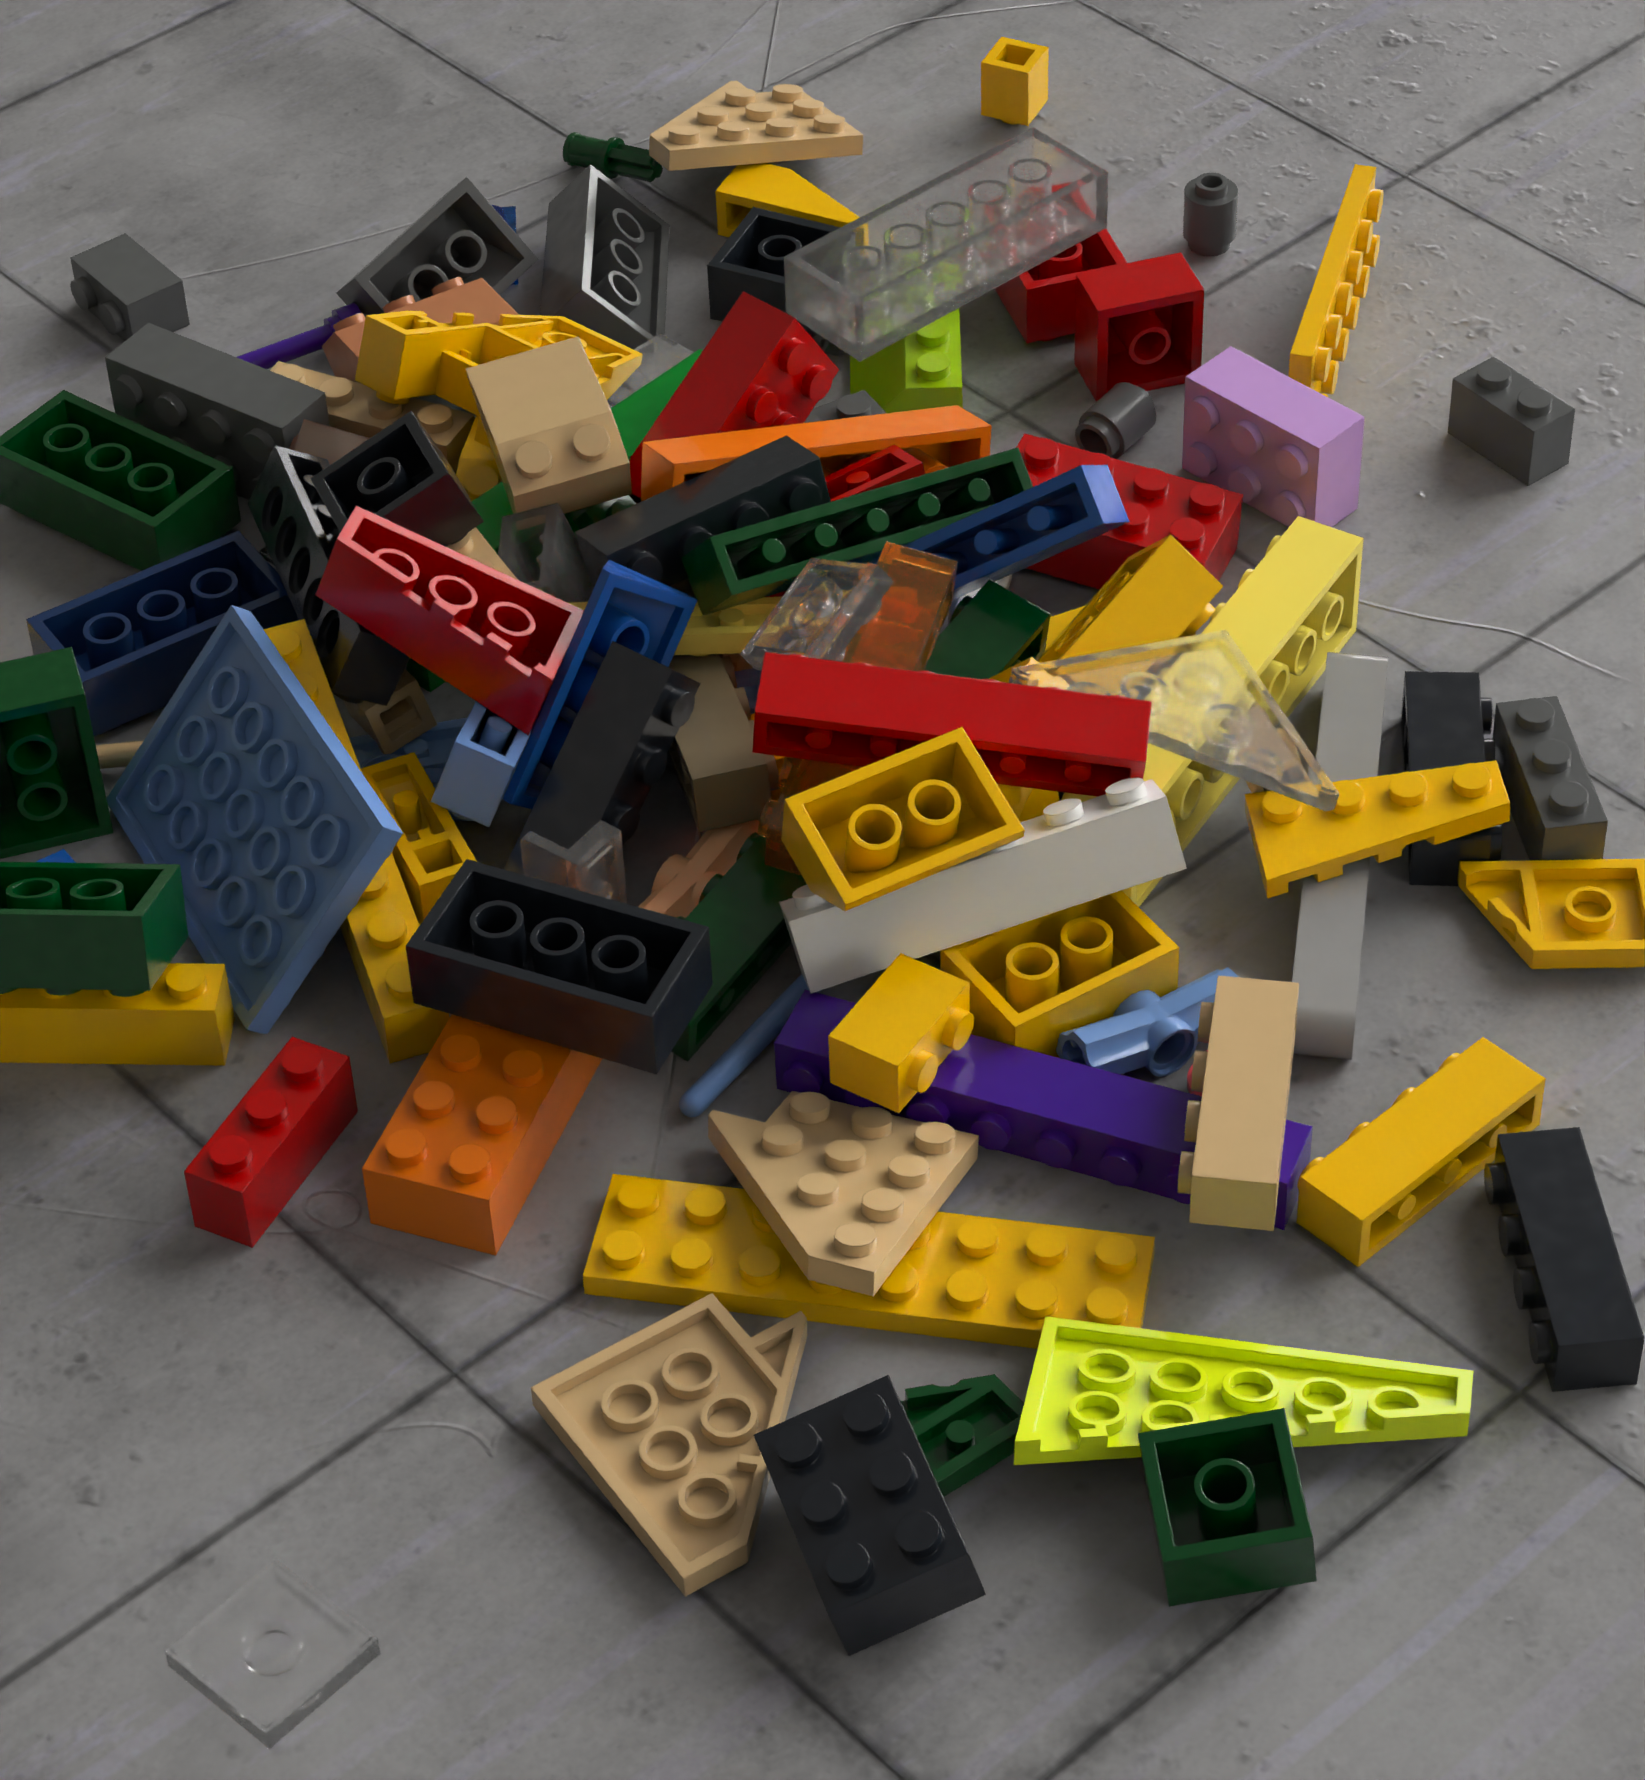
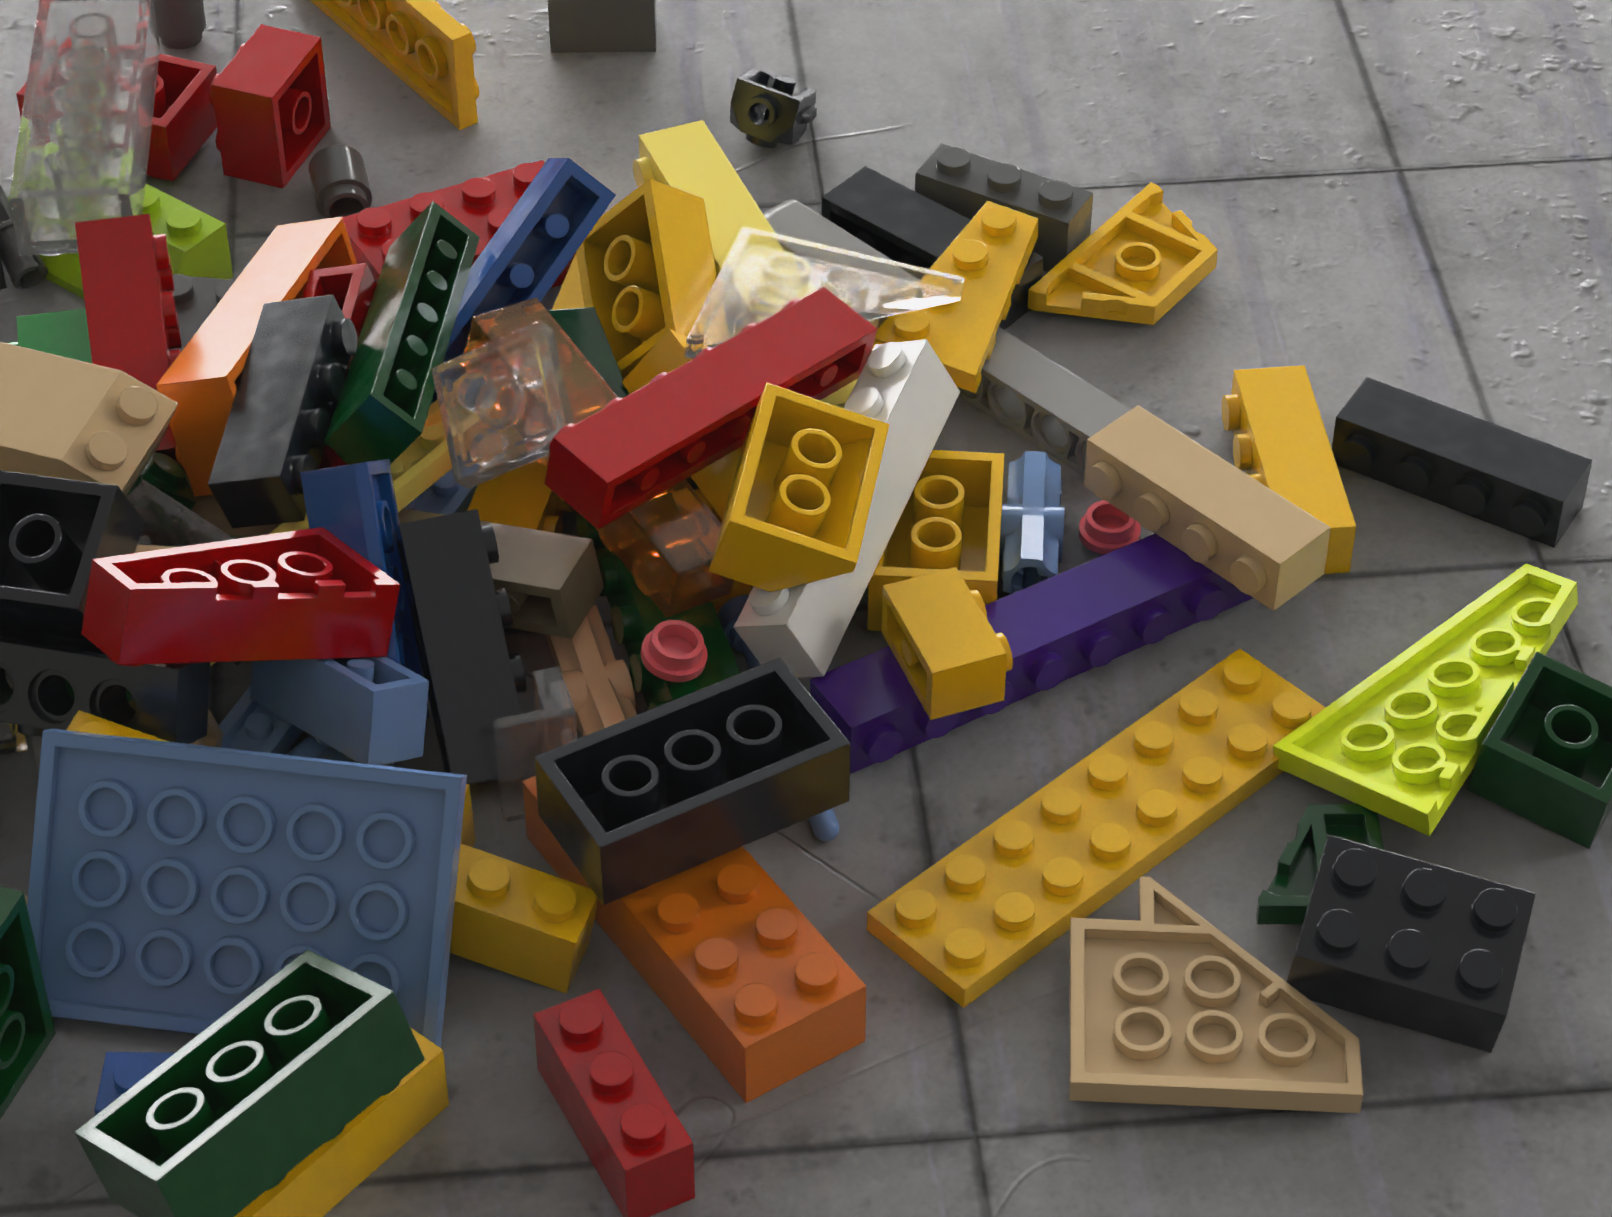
camera: 55 degrees left, 0 degrees up
(717, 886) = (674, 651): none -> coral plate
(844, 1181) = (1031, 773): tan wing -> none
(1271, 440) = (491, 113): lavender brick -> none
(1508, 582) = (768, 109): none -> black hand

